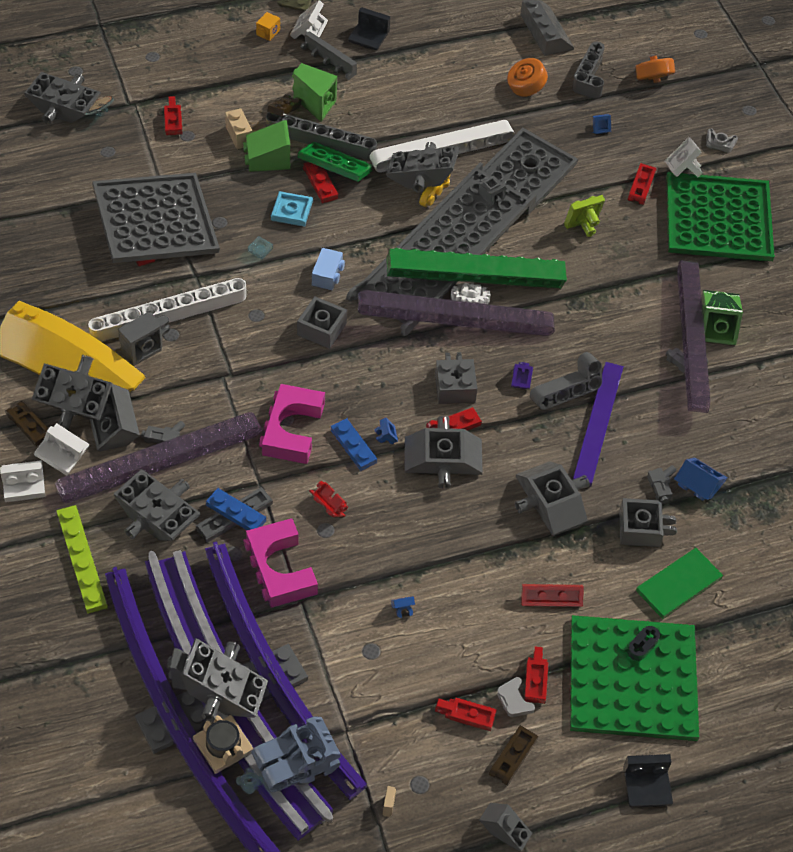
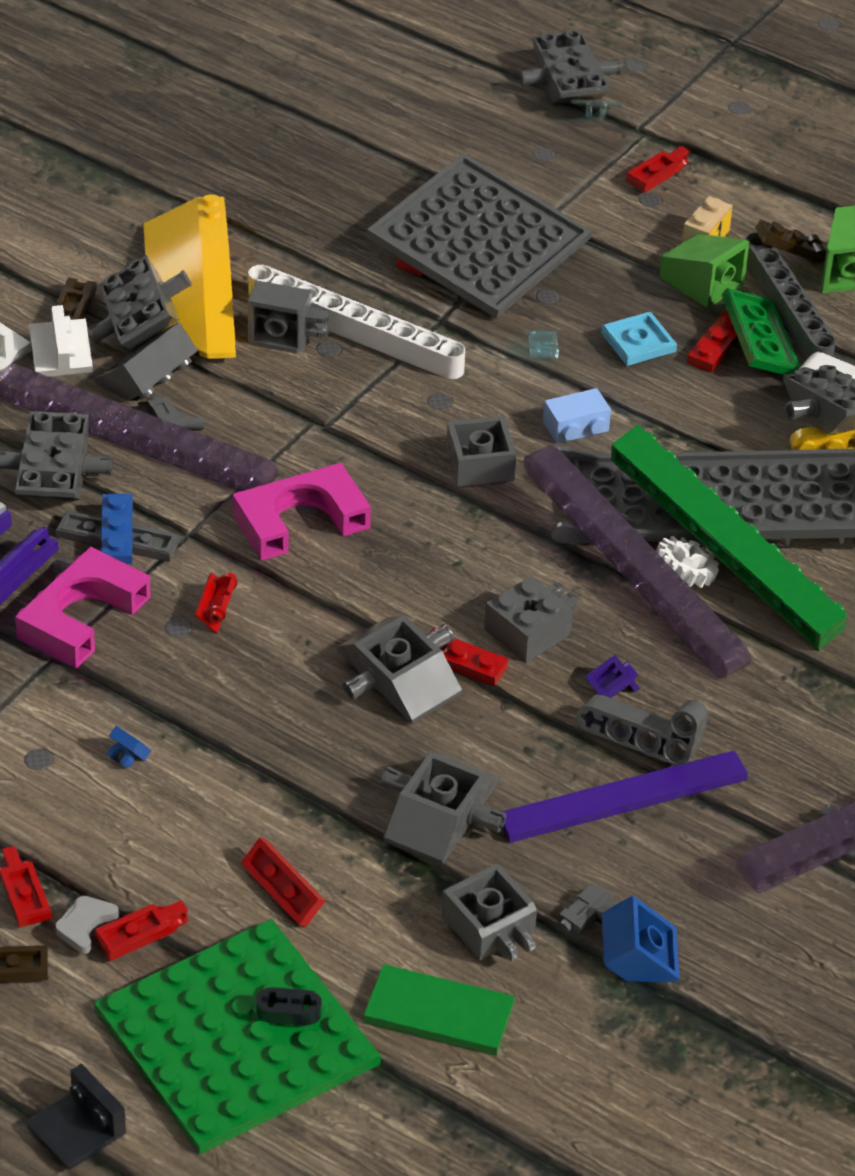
camera: 55 degrees right, 10 degrees down
(353, 444) = (331, 583): blue plate -> none
(388, 432) = (380, 598): blue tile -> none

